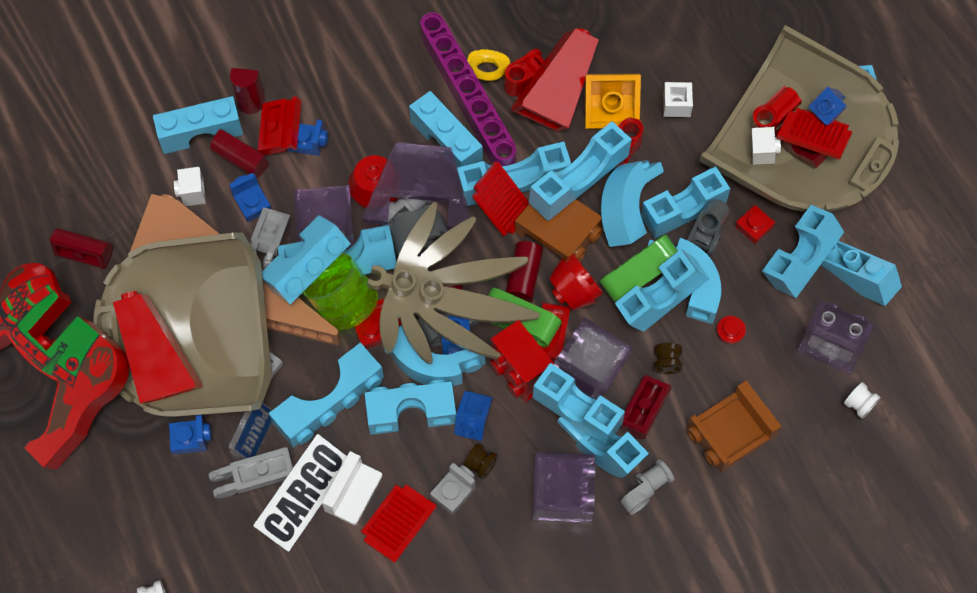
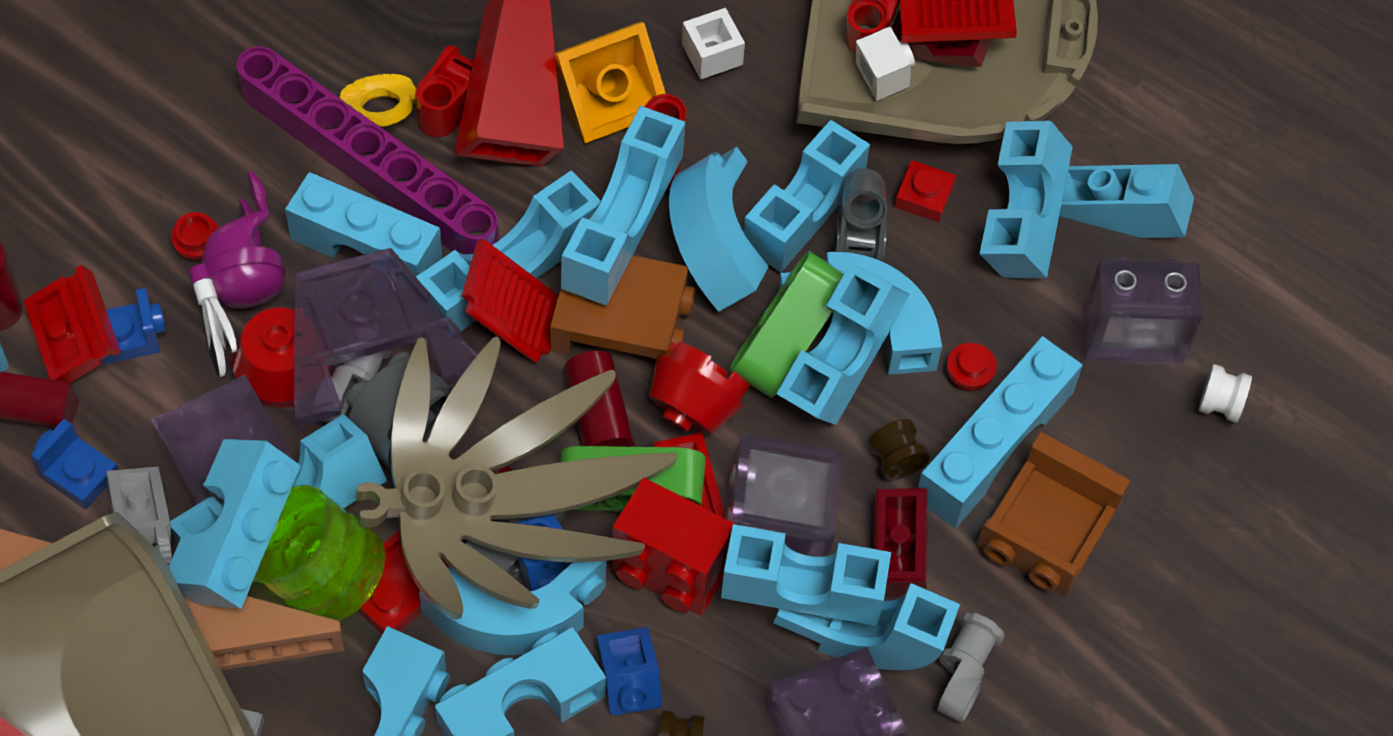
camera: 30 degrees left, 5 degrees down
(362, 102) = (191, 234): none -> red plate
(372, 128) = (236, 273): none -> magenta hair
(747, 359) = (980, 448): none -> medium azure arch

